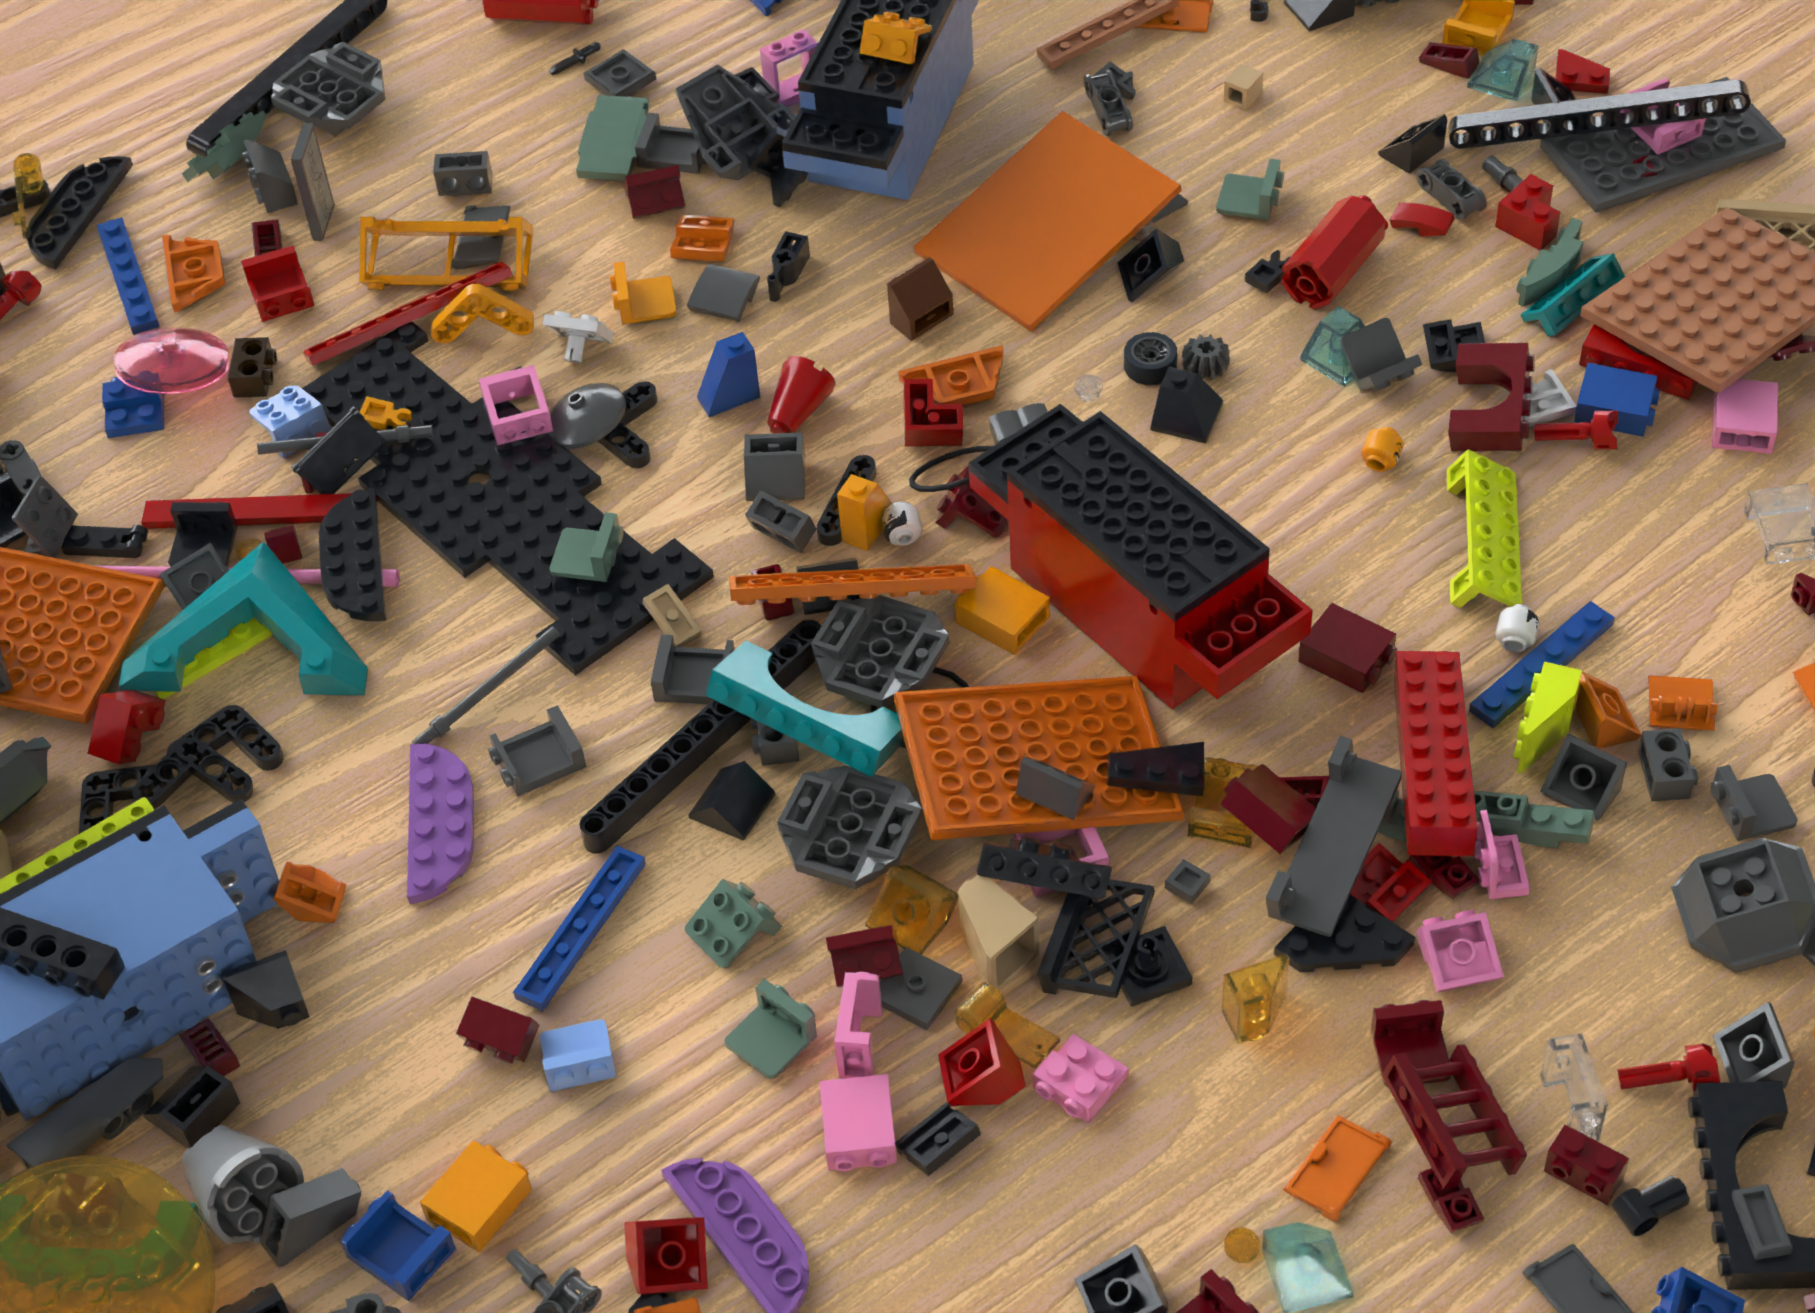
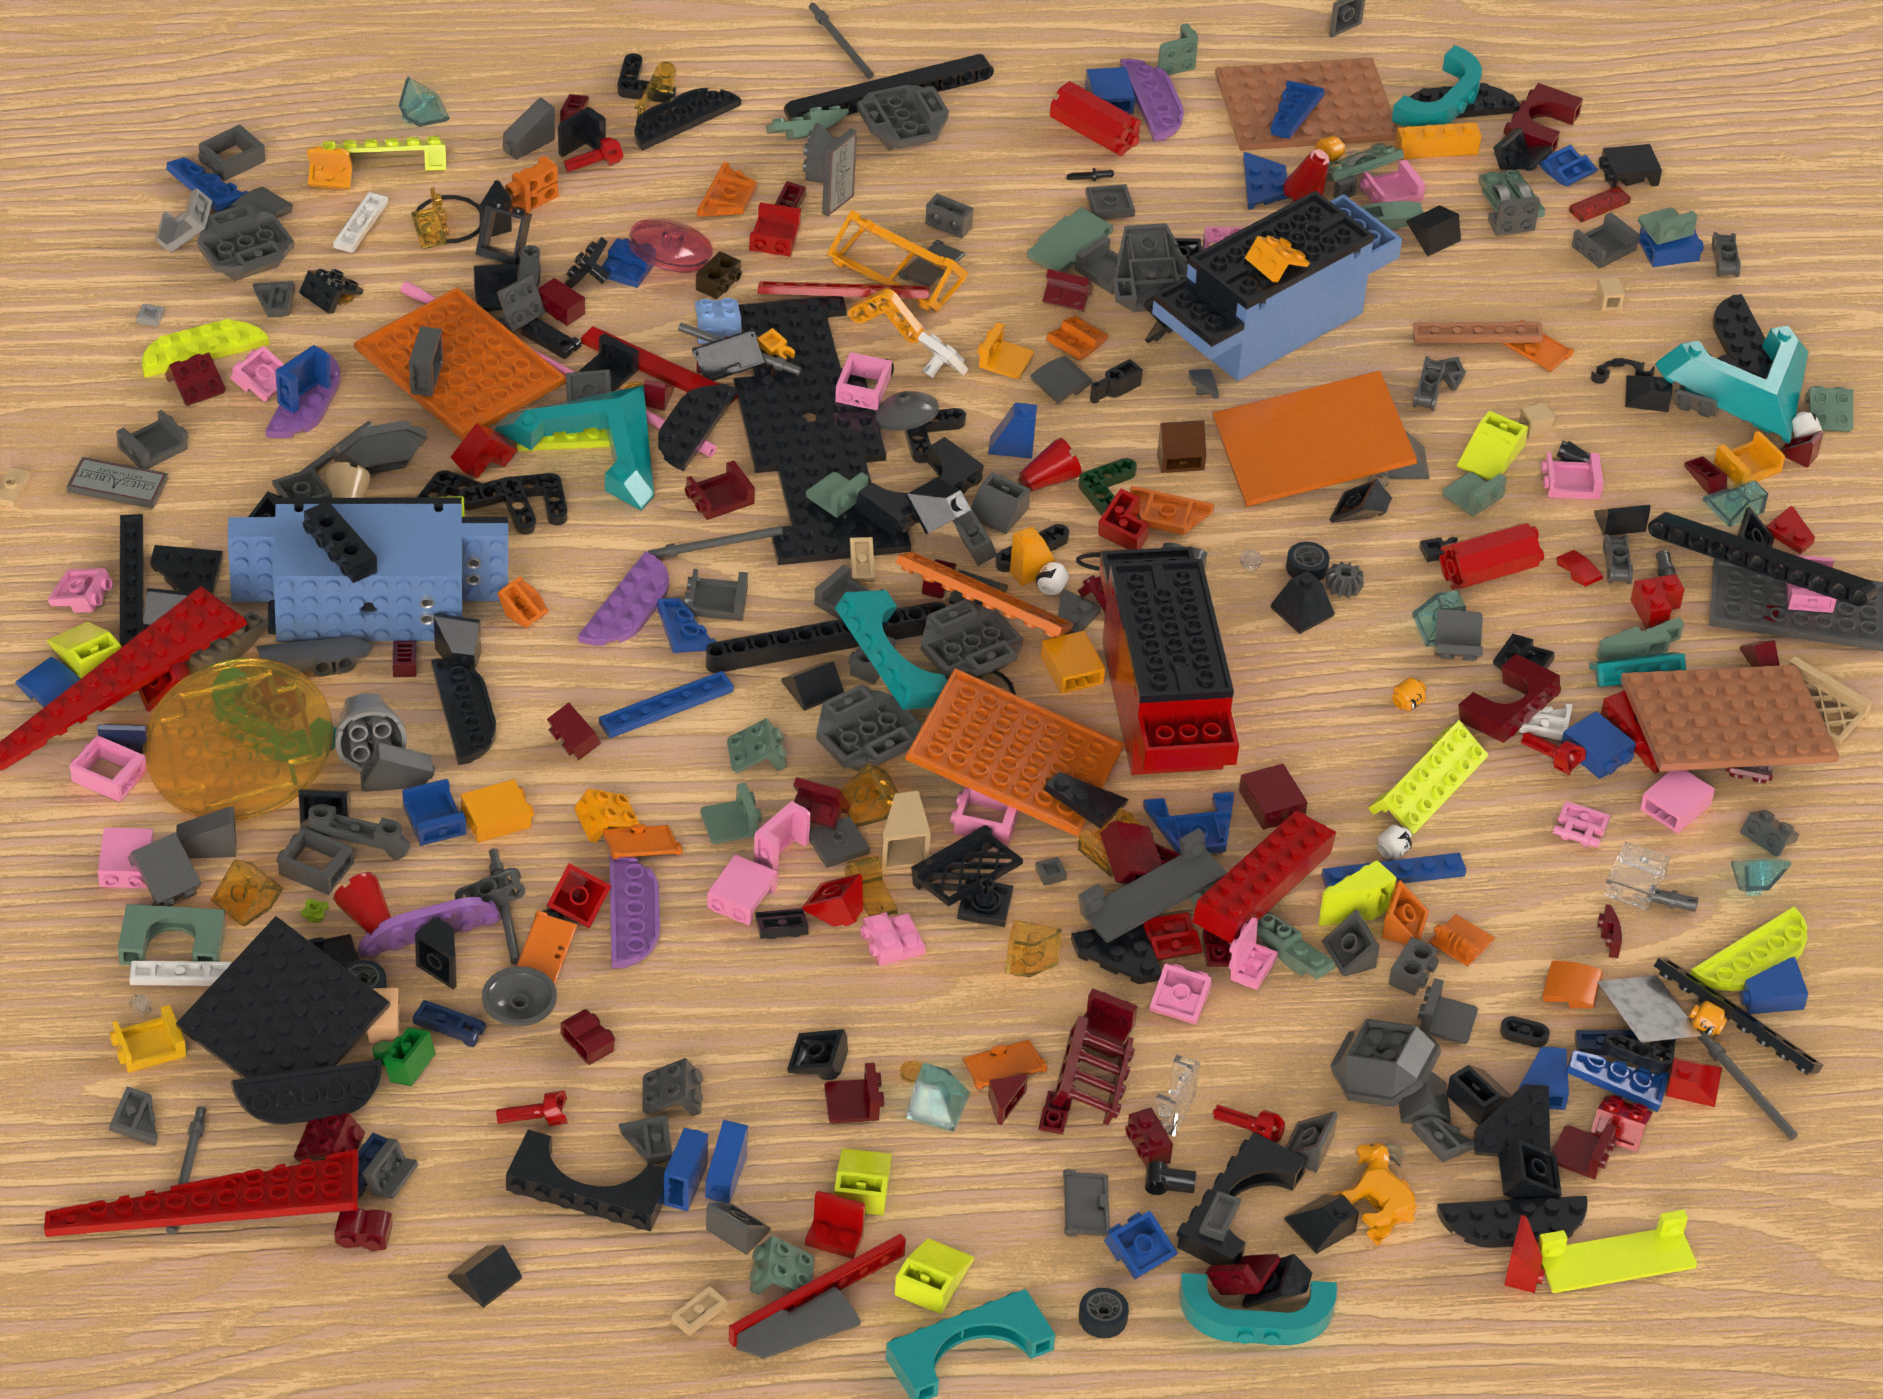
camera: 25 degrees right, 5 degrees down
(89, 430) = (587, 263): none -> black plate
(90, 490) = (561, 301): none -> dark red brick
(128, 276) = (685, 177): blue plate -> none
(155, 30) = (823, 19): none -> dark grey bar
(193, 1105) = (377, 678): black slope -> none
(337, 1076) = (465, 709): none -> black plate
(446, 621) = (721, 493): none -> dark red panel
(525, 818) = (681, 627): none -> blue wing
(577, 1055) = (609, 771): light blue bracket -> none
(612, 1117) = (603, 809): none -> light orange bracket
(674, 535) = (891, 508): none -> black arch
(691, 1128) = (641, 841): none -> orange door
(716, 504) = (937, 504): none -> slope
(853, 390) = (1120, 470): none -> dark green beam
(878, 217) = (1204, 382): none -> dark grey slope
(952, 545) = (1077, 610): none -> dark grey wing
(1044, 866) = (959, 808): black bracket -> none
(1052, 788) = (1004, 768): dark grey slope -> none
(1229, 135) = (1493, 446): none -> neon yellow slope
(1298, 741) = (1213, 824): none -> blue wing
(1307, 103) = (1572, 453): none -> black cone
(1331, 128) = (1573, 479): none -> bright pink panel
(1378, 1212) = (1006, 1094): none -> dark red slope
(1675, 215) = (1761, 653): none -> dark red slope
(1678, 490) = (1583, 819): none -> bright pink plate

